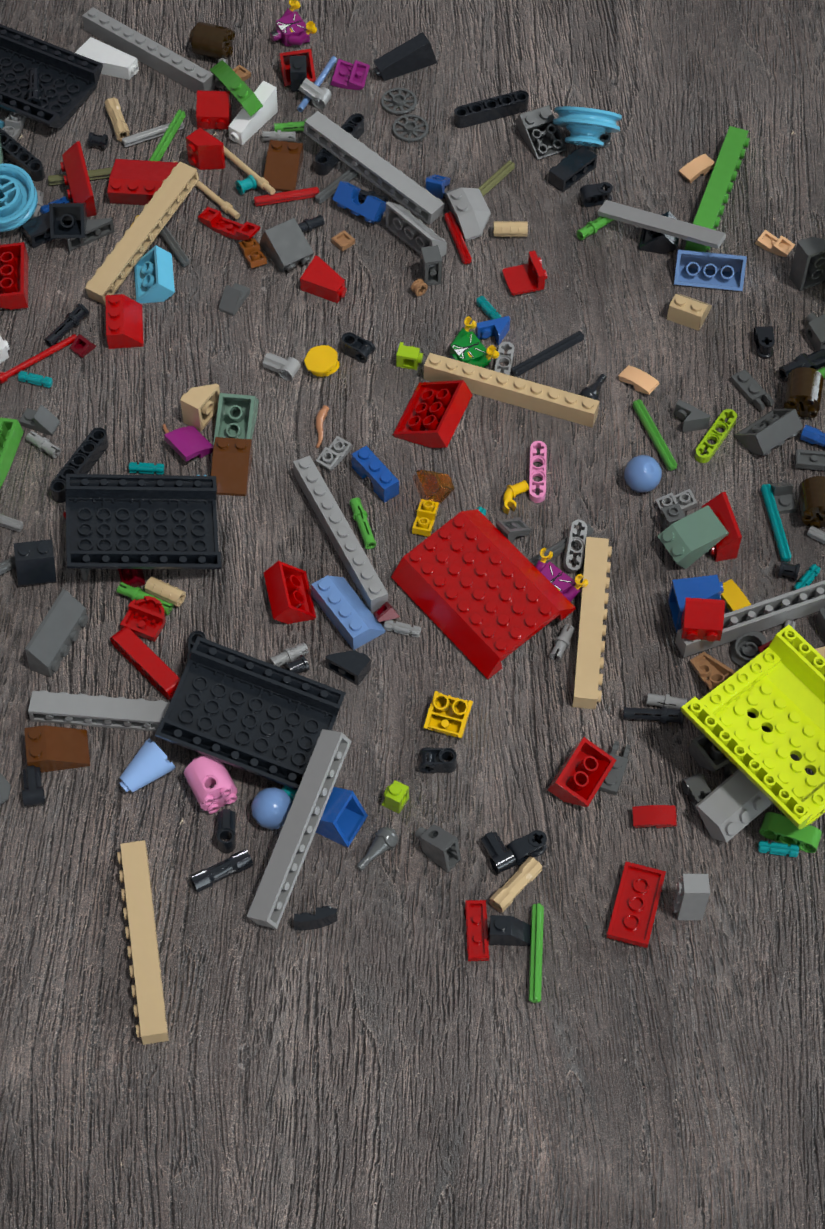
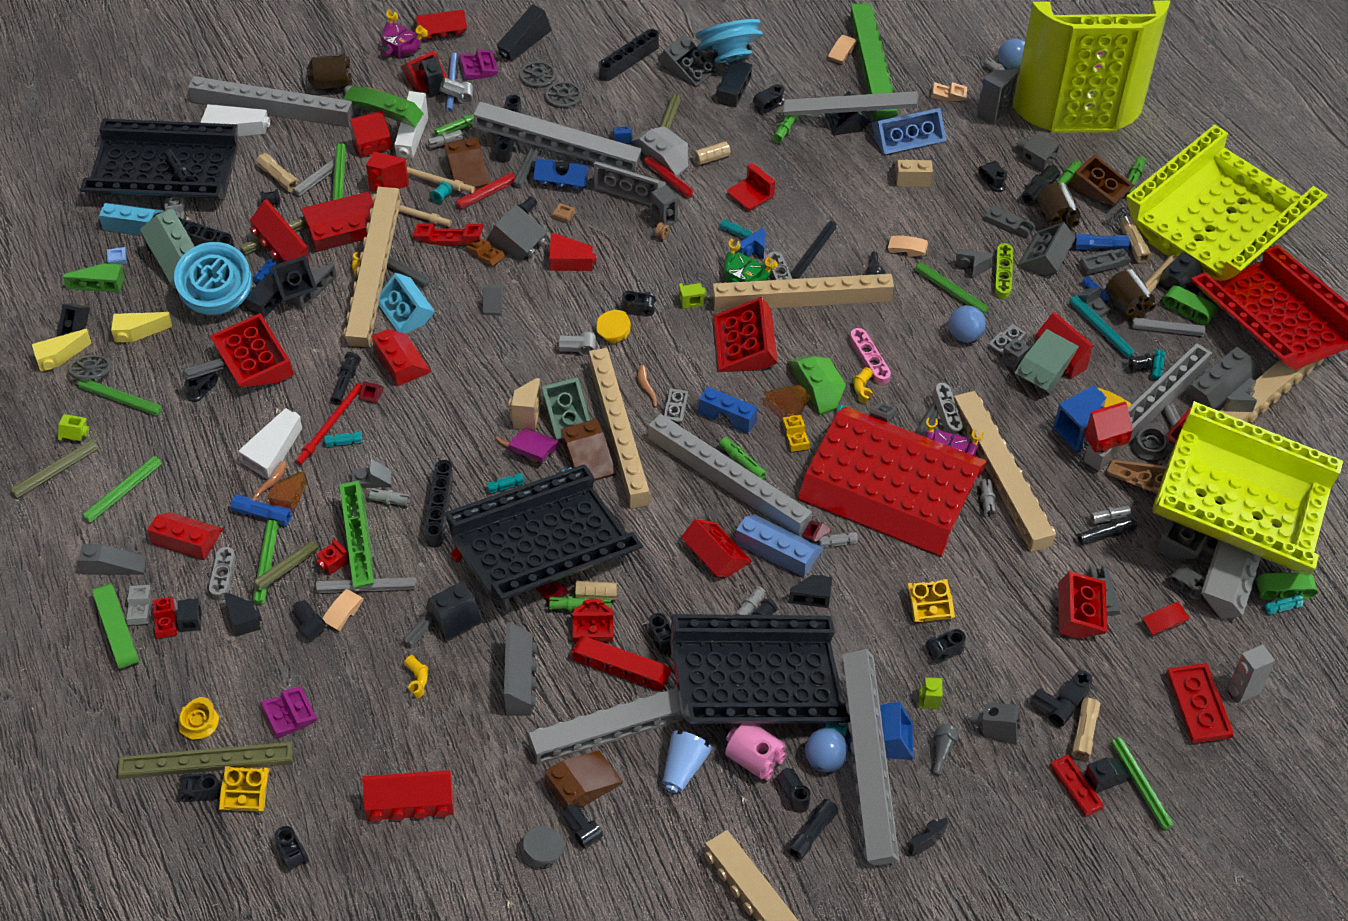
camera: 25 degrees left, 5 degrees down
(269, 455) = (619, 428): none -> tan brick
(338, 25) = (443, 23): none -> red slope
(476, 478) = (820, 381): none -> bright green wedge
(791, 478) = (1088, 283): none -> blue axle

